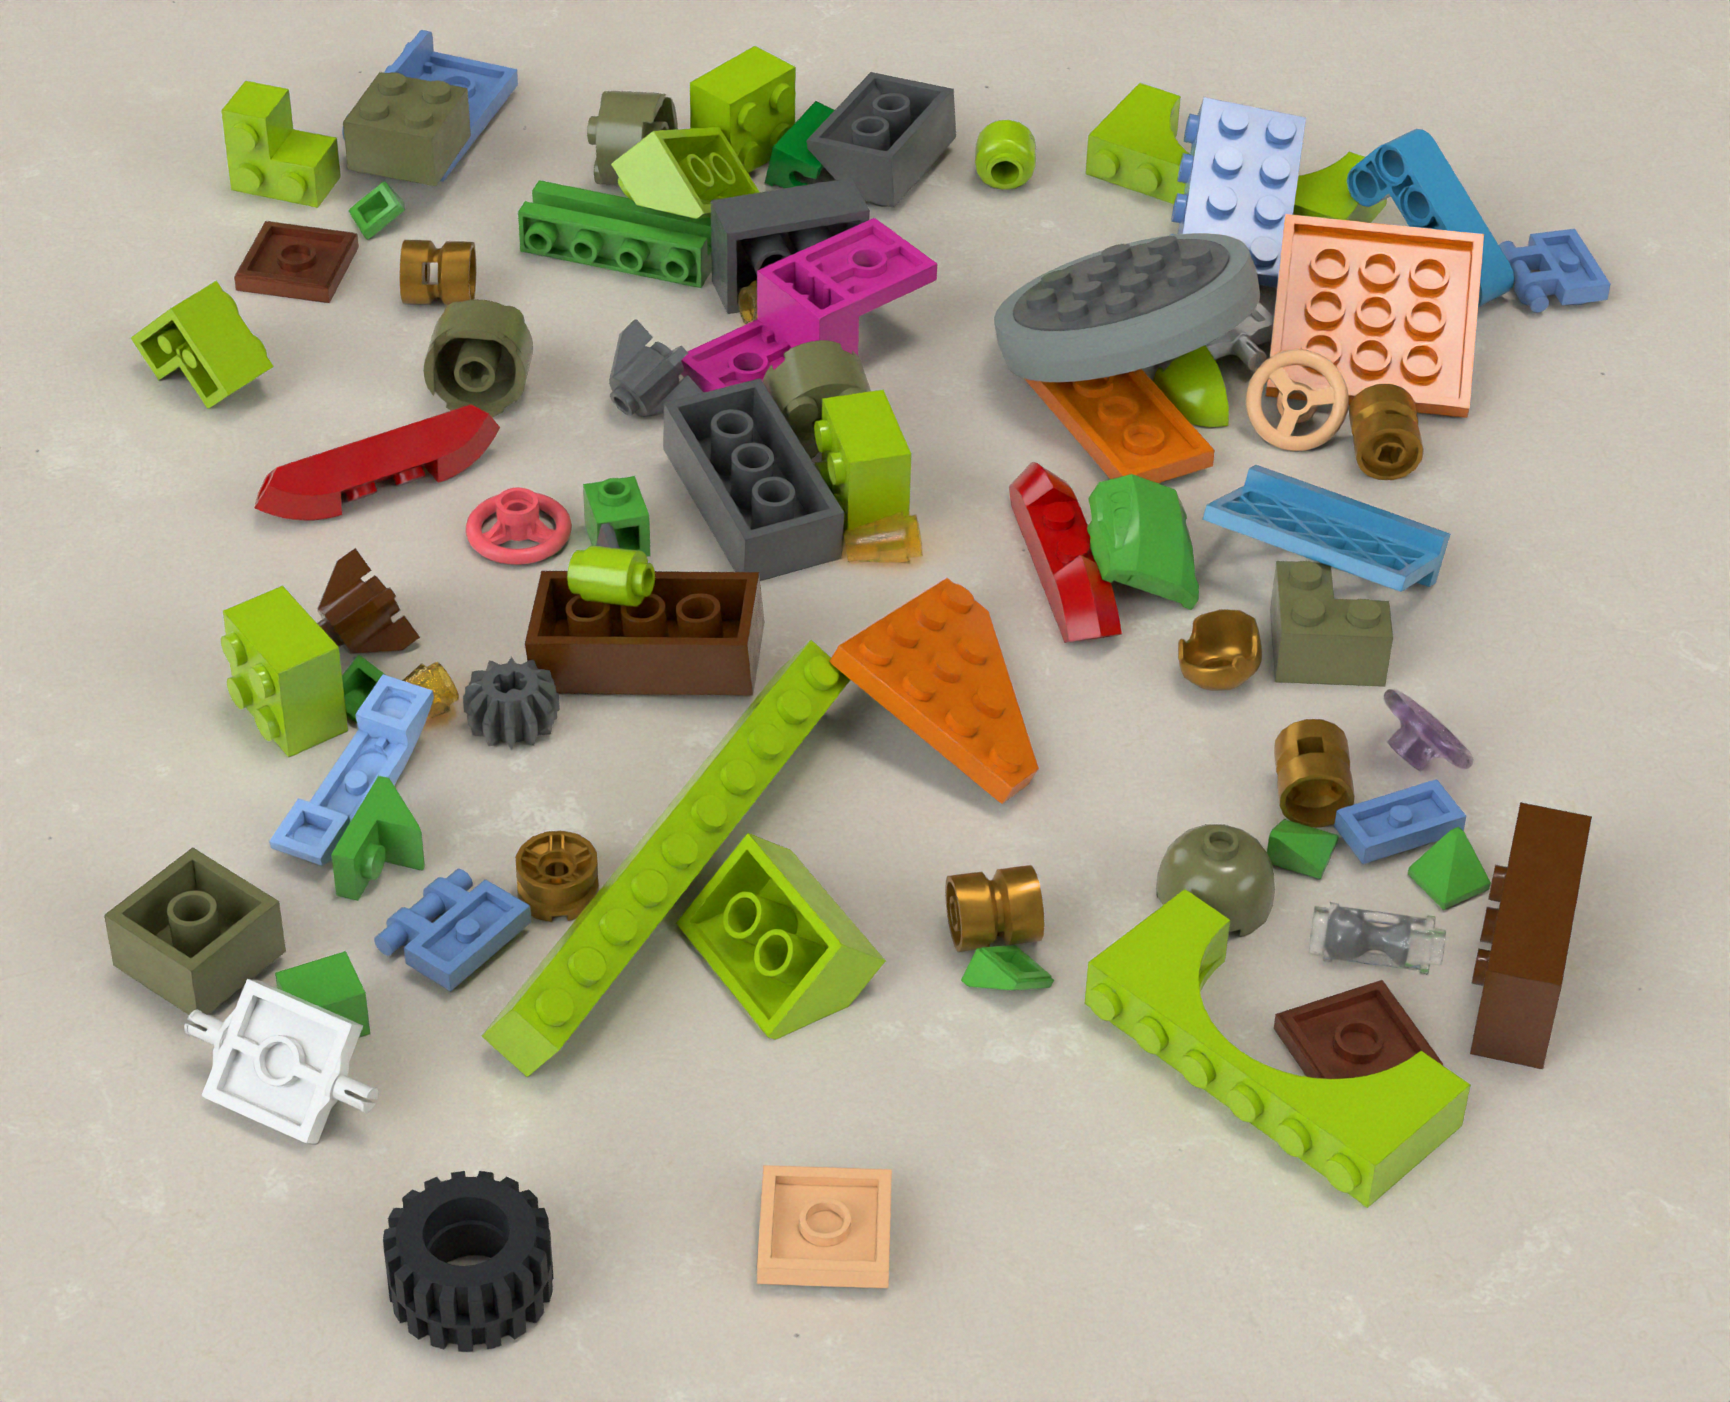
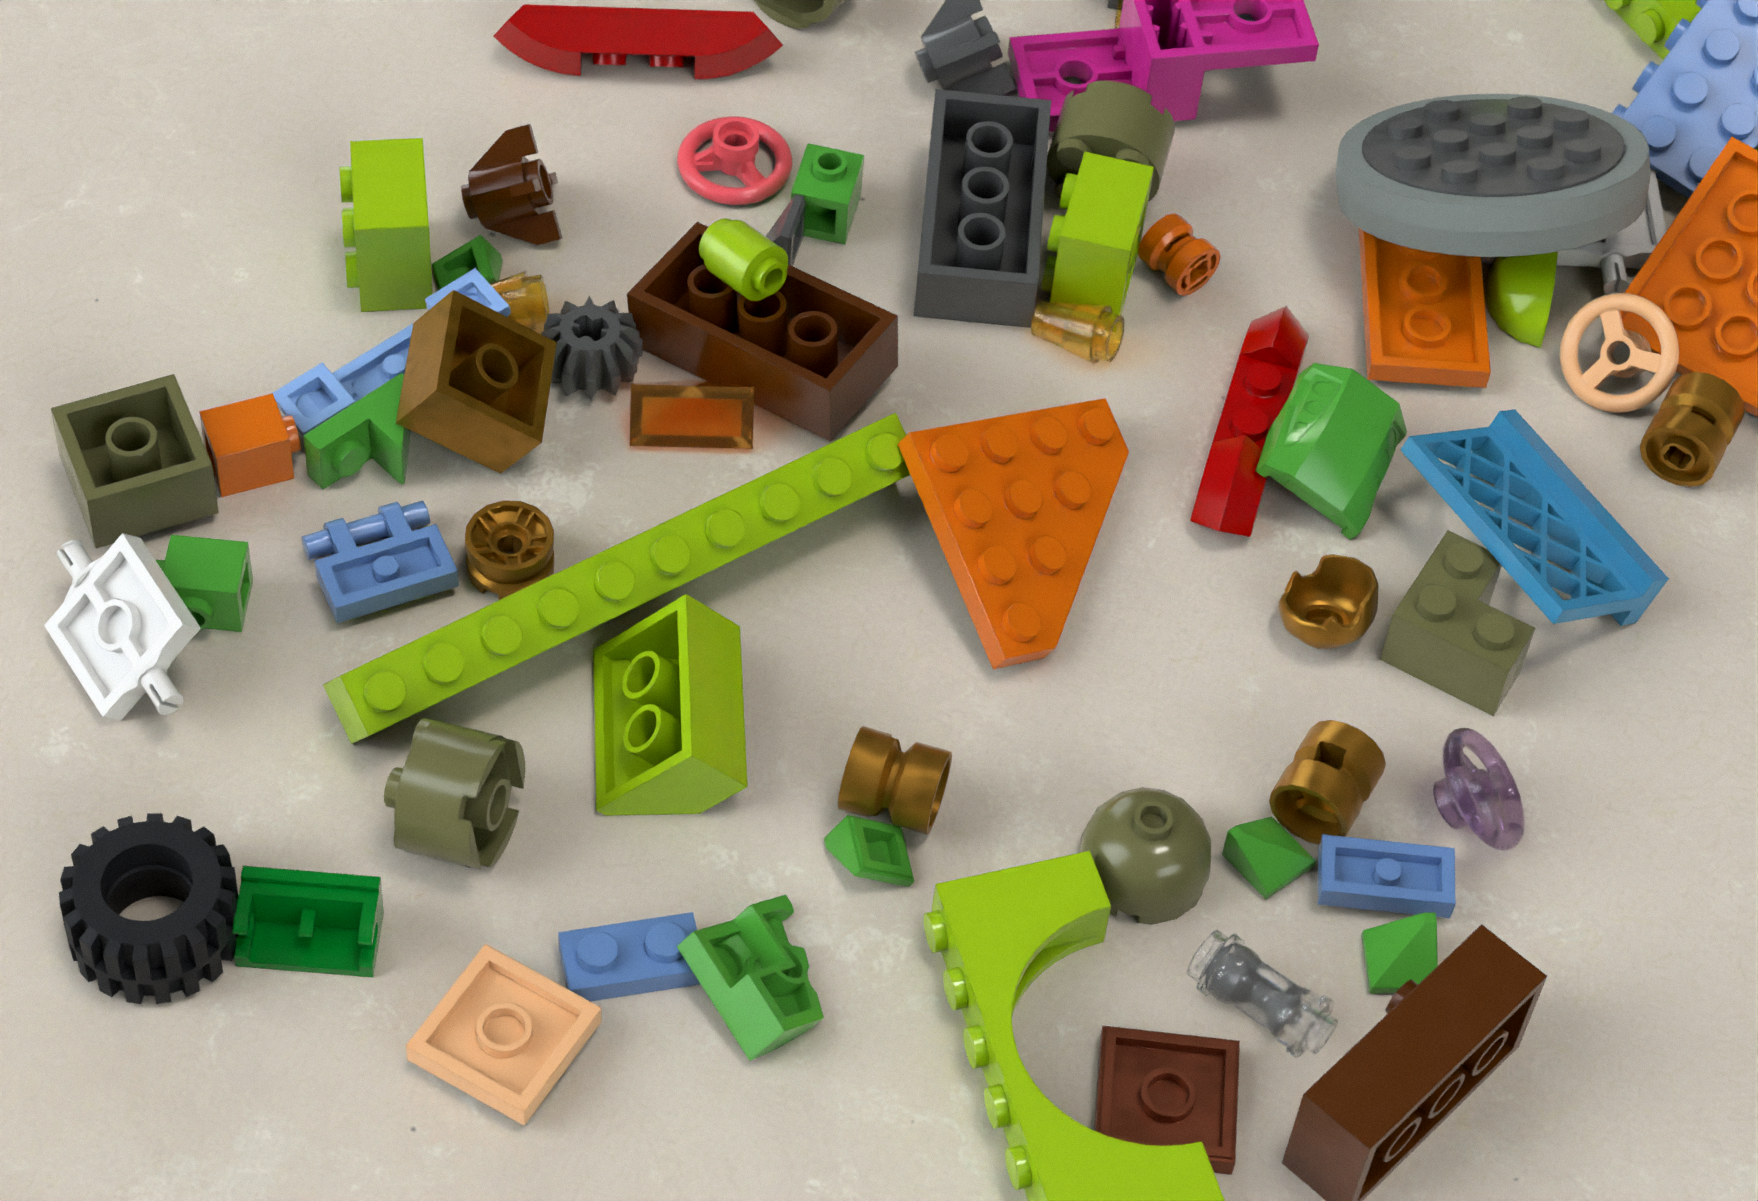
camera: 25 degrees right, 10 degrees up
(289, 875) = (249, 444): none -> orange brick
(449, 756) = (476, 382): none -> pearl gold brick
(607, 1214) = (308, 921): none -> green hinge
(630, 720) = (691, 414): none -> clear orange slope
(660, 1063) = (456, 794): none -> olive brick
(880, 1127) = (627, 957): none -> medium blue plate
(930, 459) = (1179, 254): none -> orange wheel
(991, 1098) = (755, 977): none -> bright green slope

